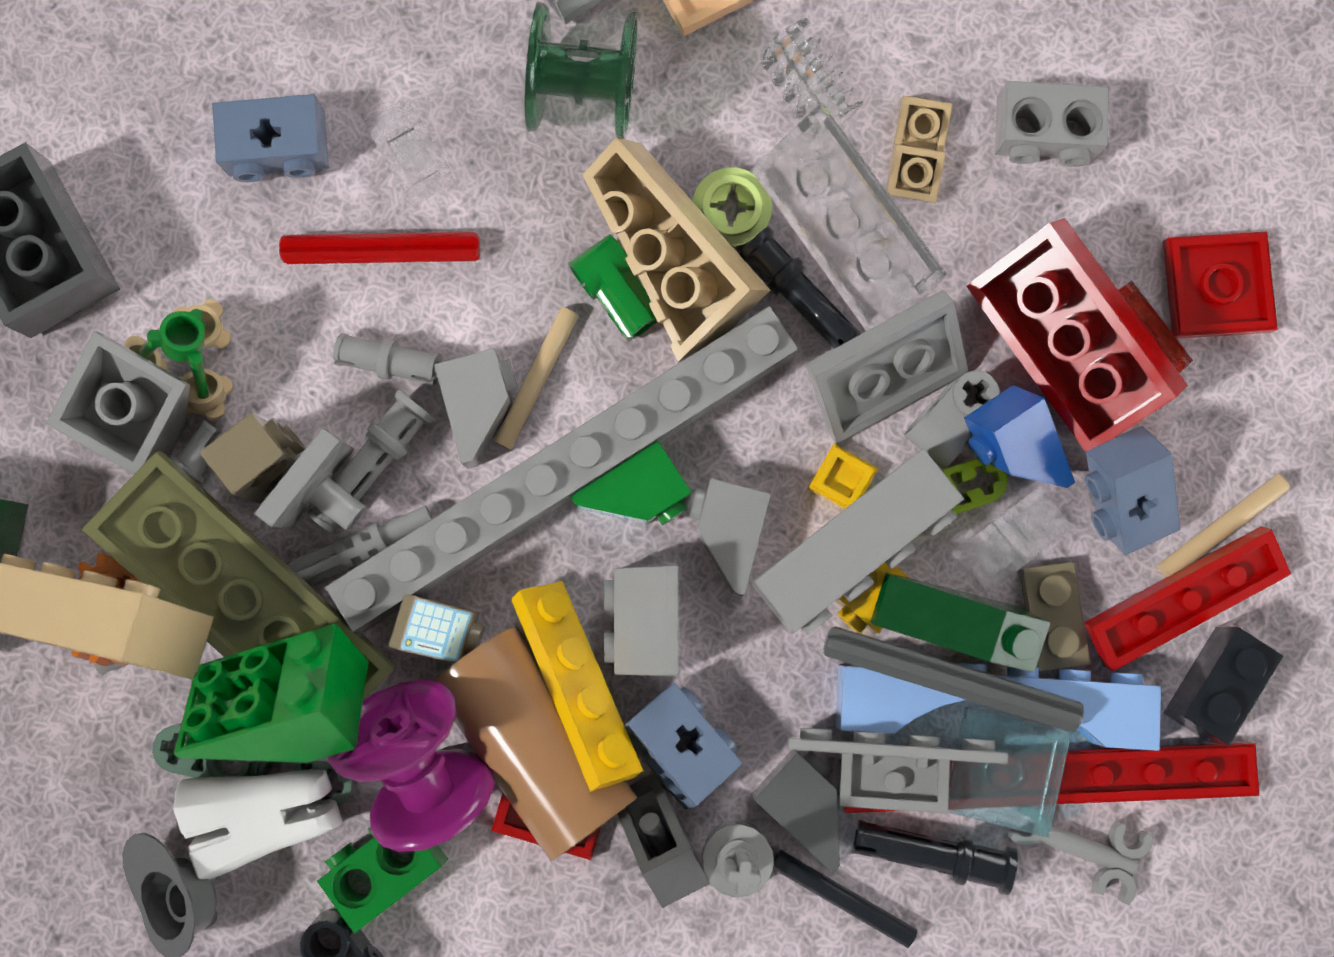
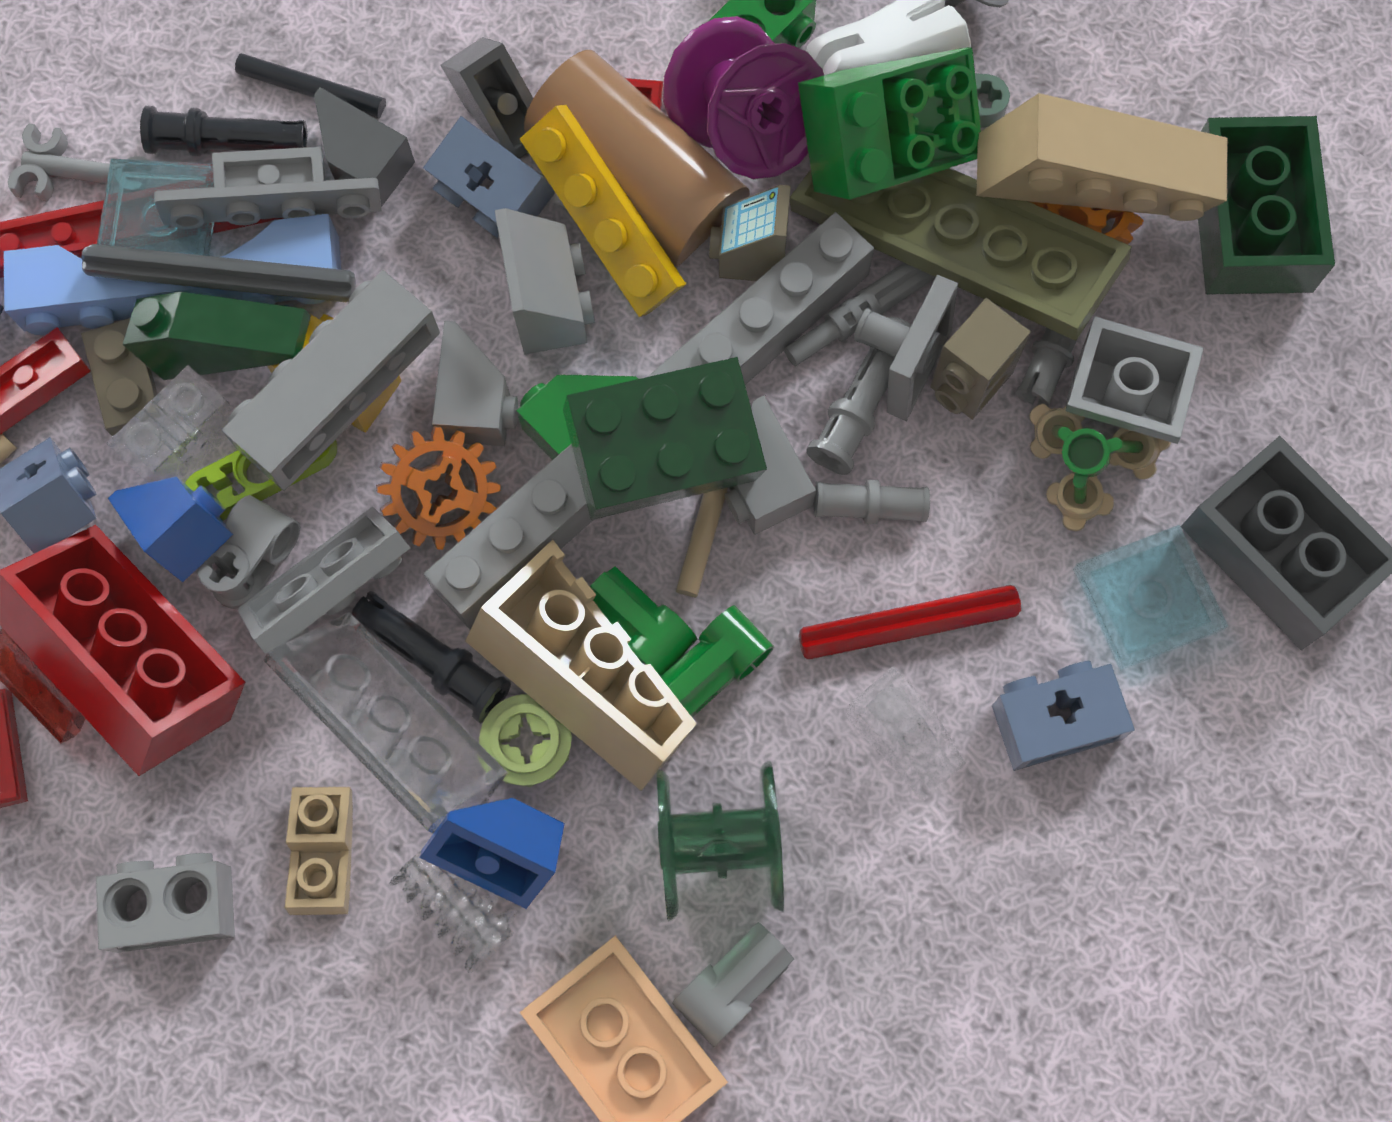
camera: 175 degrees right, 10 degrees down
(165, 231) = (1150, 597): none -> clear light blue tile
(546, 246) = (723, 654): none -> green piece
(559, 414) = (664, 437): none -> dark green brick
(737, 858) = (414, 85): light grey piece -> none
(761, 102) = (498, 848): none -> blue slope
(774, 439) = (460, 497): none -> orange gear
(842, 477) = (358, 472): yellow tile -> none

